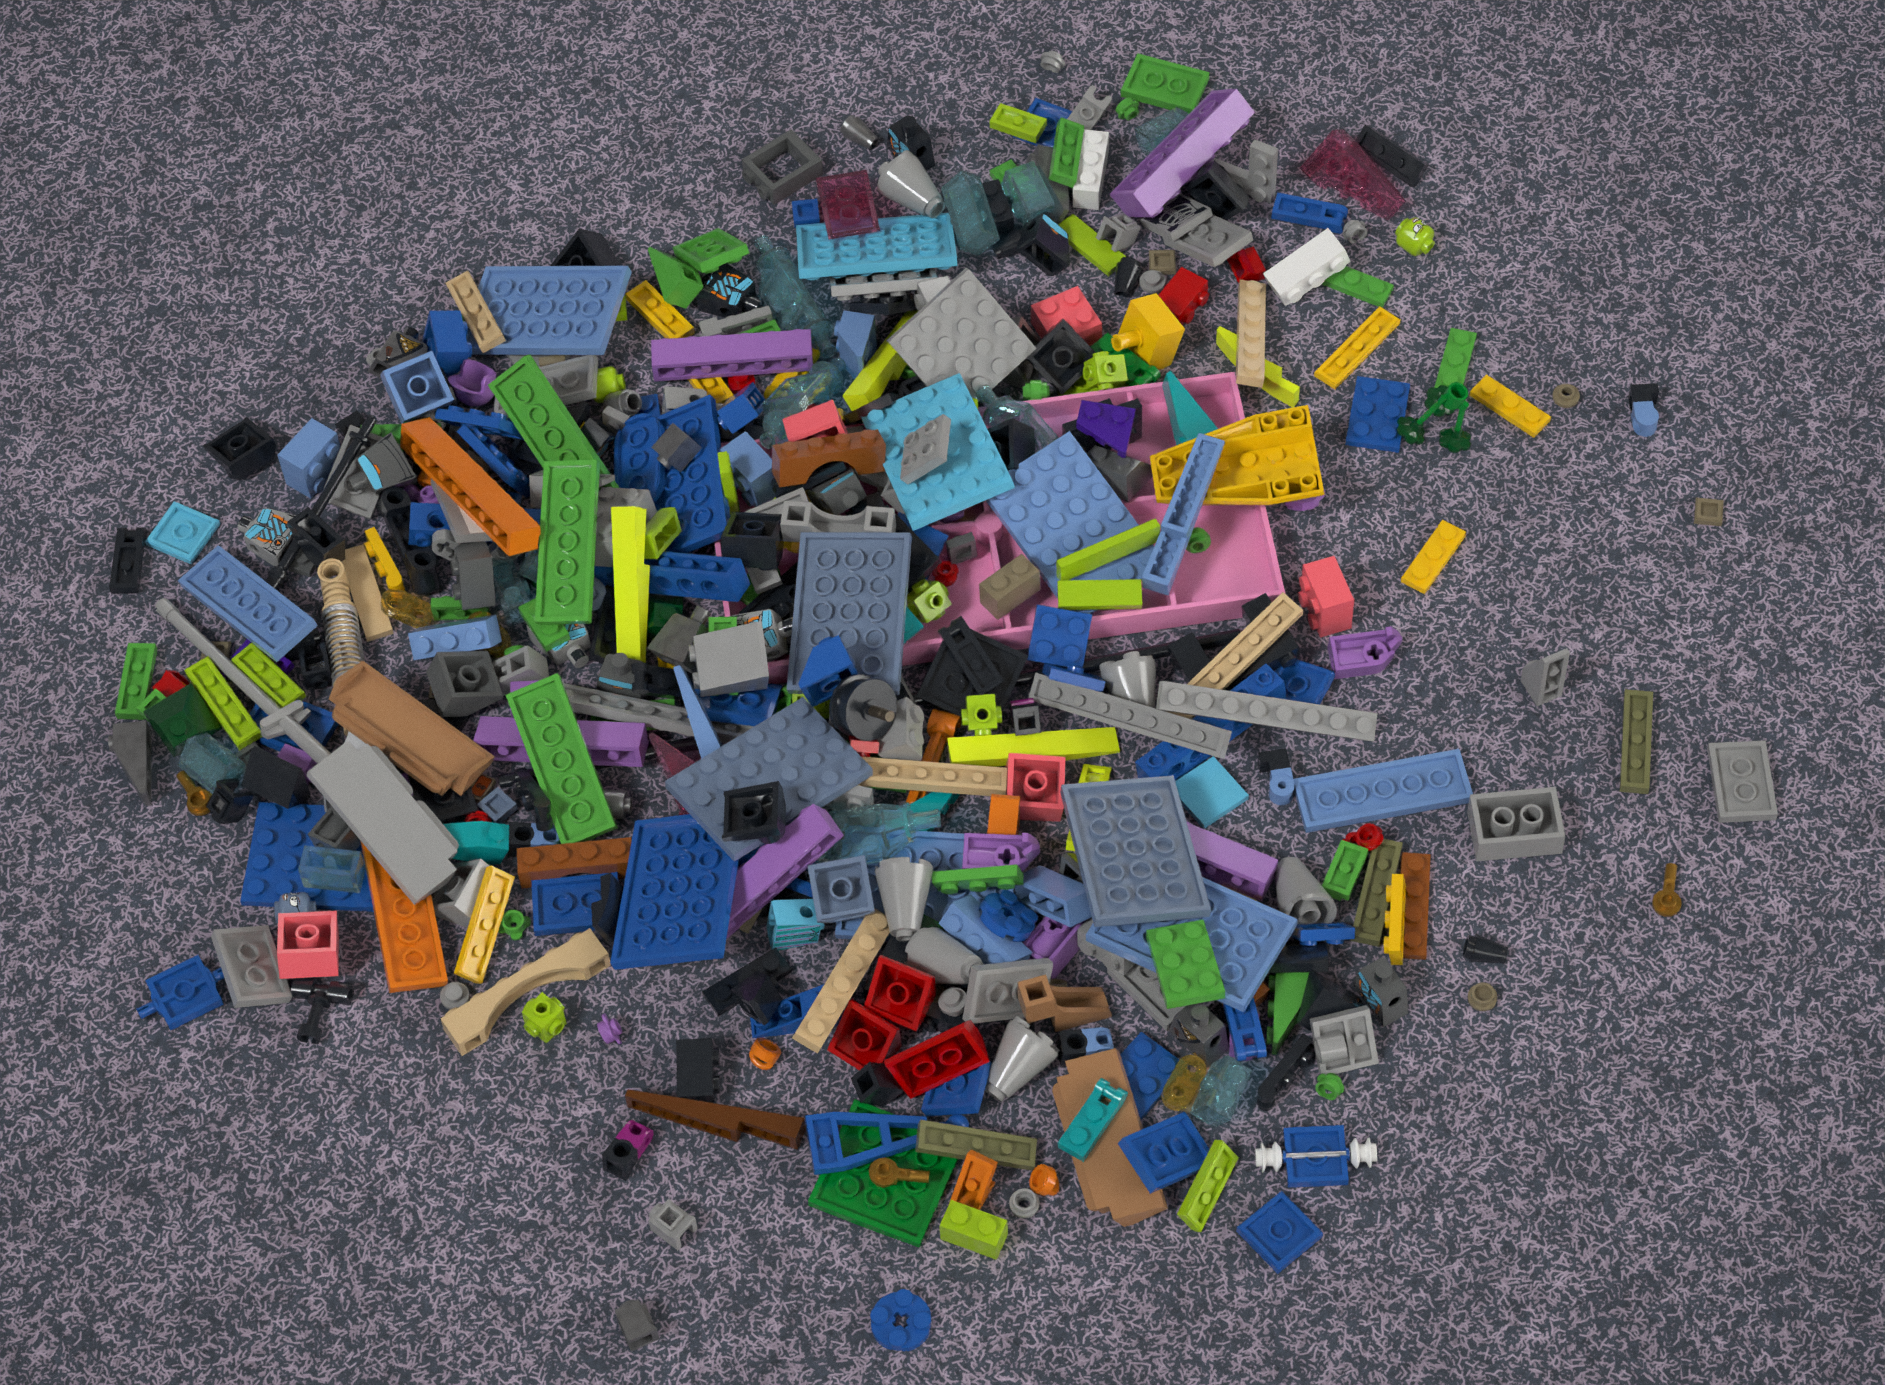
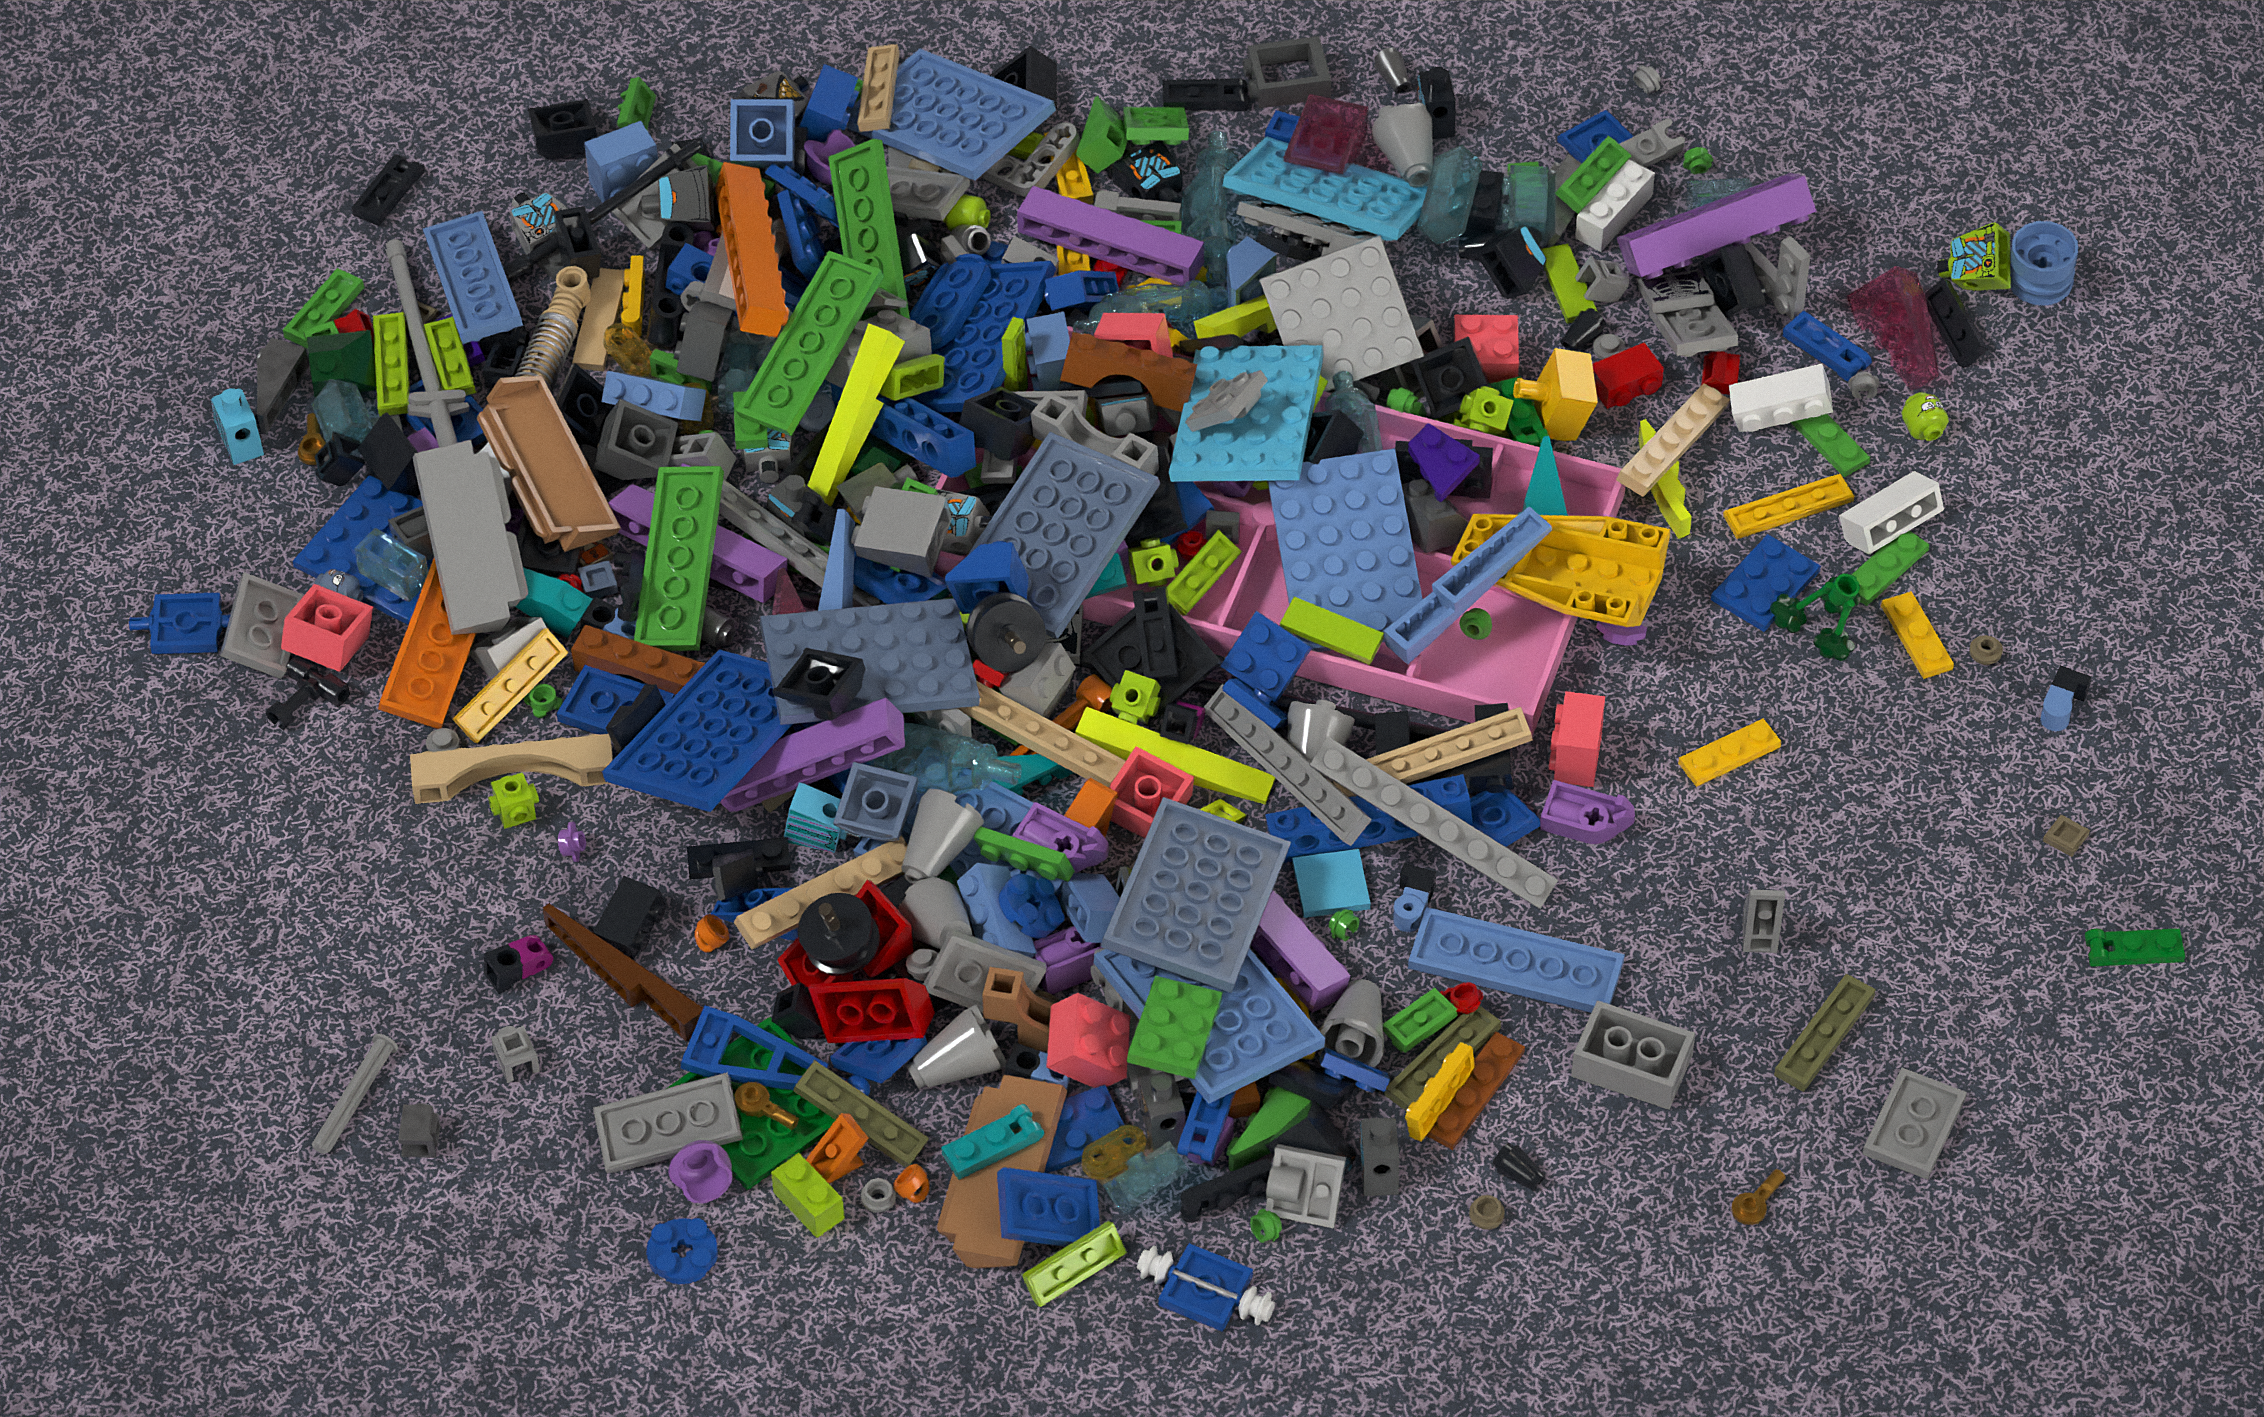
camera: 25 degrees right, 5 degrees down
(122, 803) = (231, 414): none -> medium azure torso
(182, 532) = (458, 186): medium azure tile -> none
(288, 408) = (637, 104): none -> bright green plate
(399, 667) = (583, 406): none -> black slope
(563, 1319) = (354, 1093): none -> light grey axle
(630, 330) = (1024, 171): none -> light grey beam
(675, 448) = (983, 300): flat silver brick -> none
(728, 211) = (1206, 94): none -> black plate
(829, 1224) = (666, 1120): none -> light grey tile
(882, 1010) = (838, 934): none -> black wheel
(882, 1250) = (701, 1171): none -> medium lavender helmet
(965, 593) = (1202, 572): none -> lime tile
(1009, 586) = (1241, 582): dark tan brick -> none
(1018, 123) = (1566, 126): lime plate -> none
(1107, 550) = (1363, 588): lime tile -> none
(1115, 1004) = (1088, 1041): none -> coral brick
(1162, 261) = (1634, 330): dark tan tile -> none
(1164, 83) = (1754, 148): bright green plate -> none
(1237, 820) = (1341, 921): none -> bright green plate
(1279, 1232) = (1119, 1343): blue plate -> none
(1382, 100) = (1979, 259): none -> torso
(1428, 83) = (2043, 262): none -> medium blue wheel
(1437, 320) = (1891, 512): none -> white brick
(1808, 574) = (2134, 947): none -> green plate

